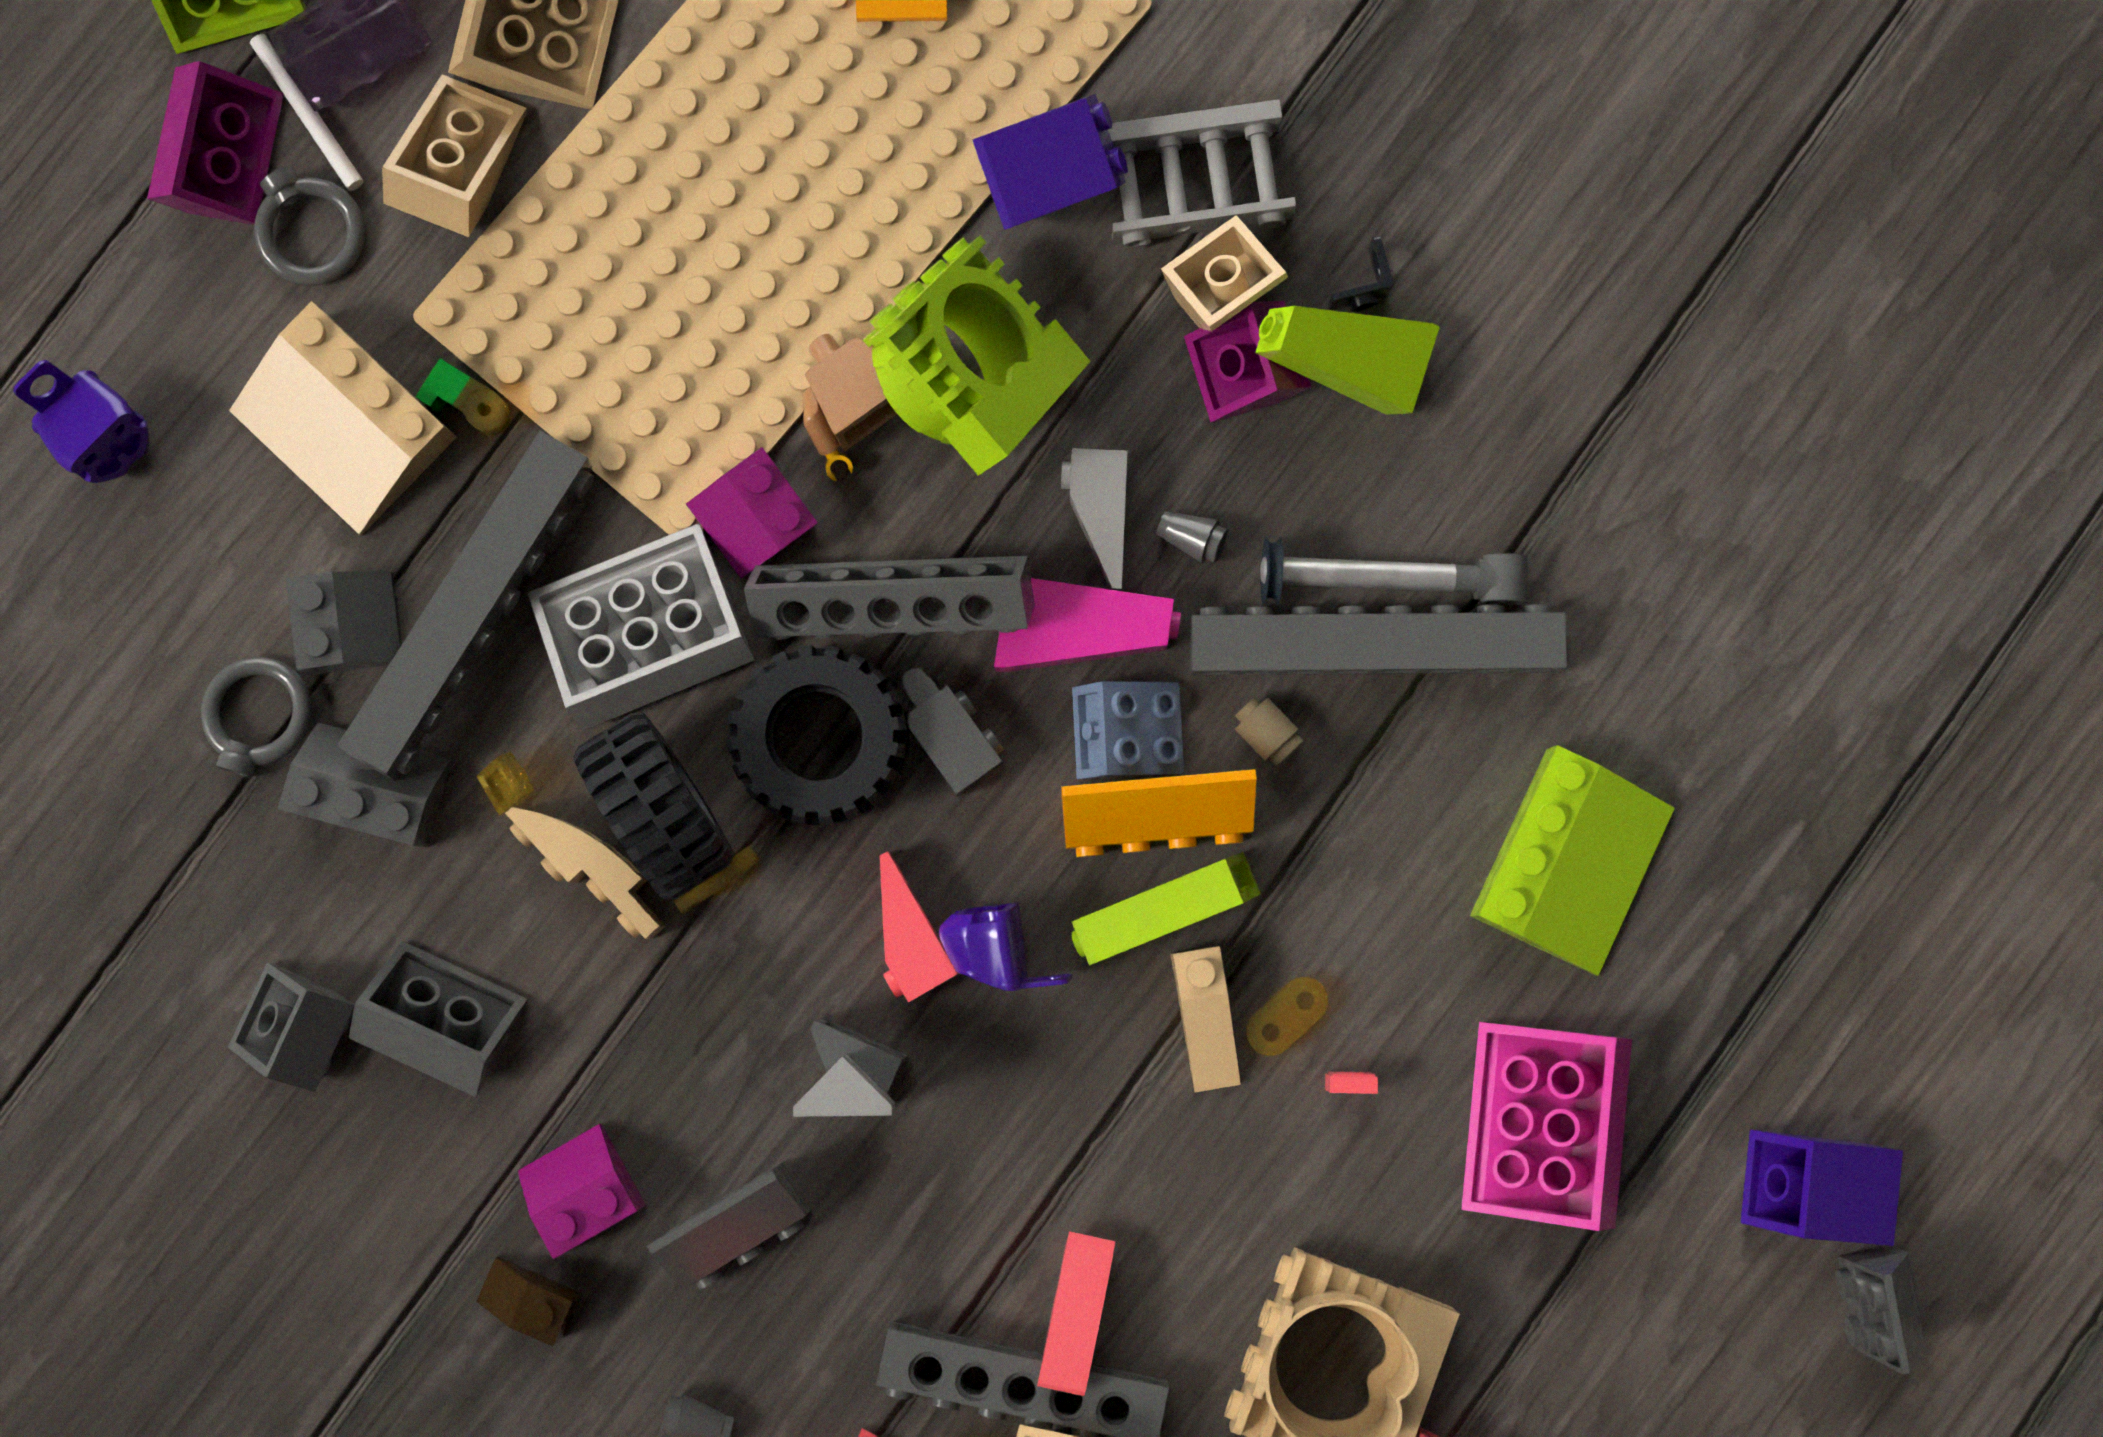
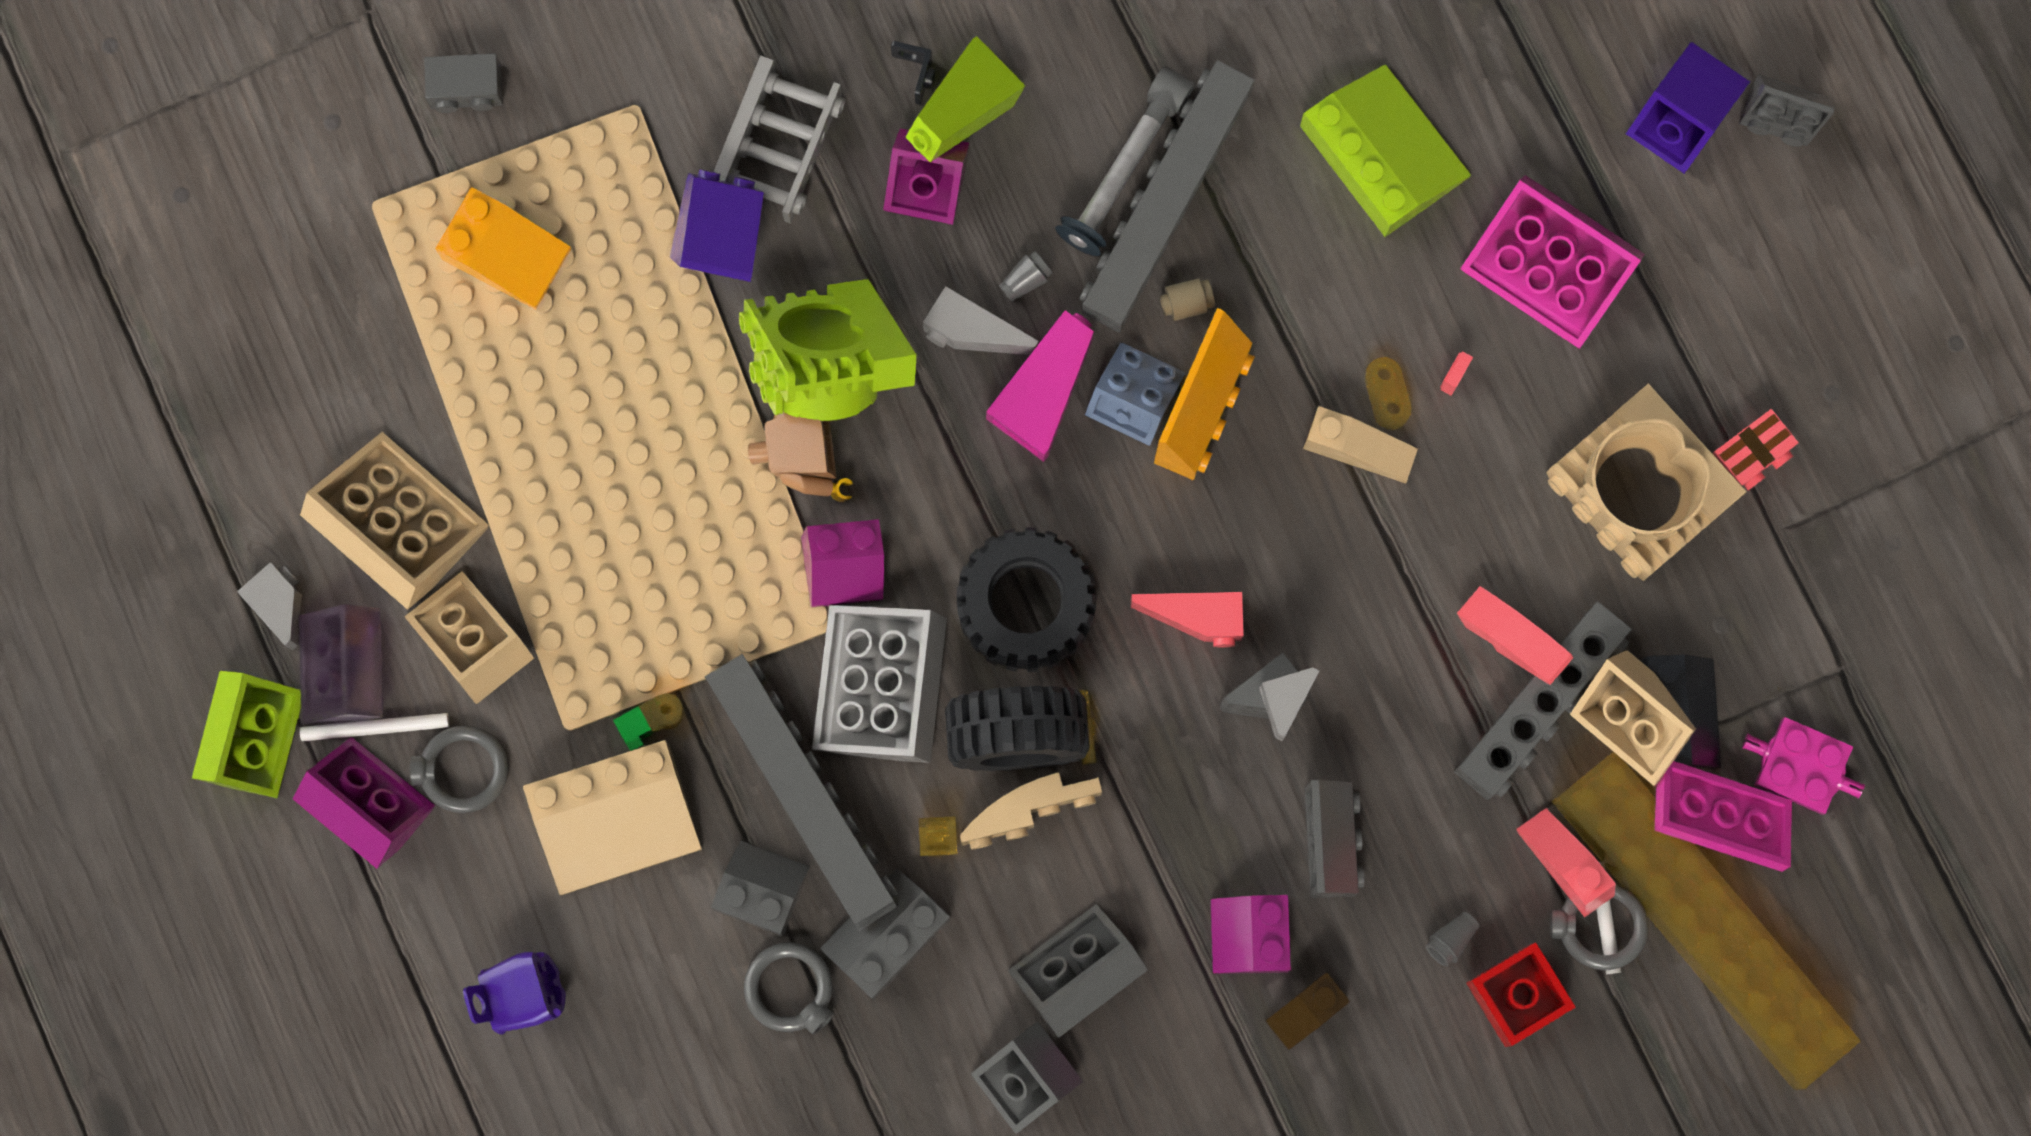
camera: 65 degrees left, 5 degrees down
(909, 583) = (955, 479): dark grey brick -> none
(948, 733) = (1071, 512): dark grey hinge -> none
(990, 947) = (1235, 561): dark purple piece -> none
(1165, 909) = (1272, 432): lime slope -> none
(1222, 274) = (862, 157): tan slope -> none

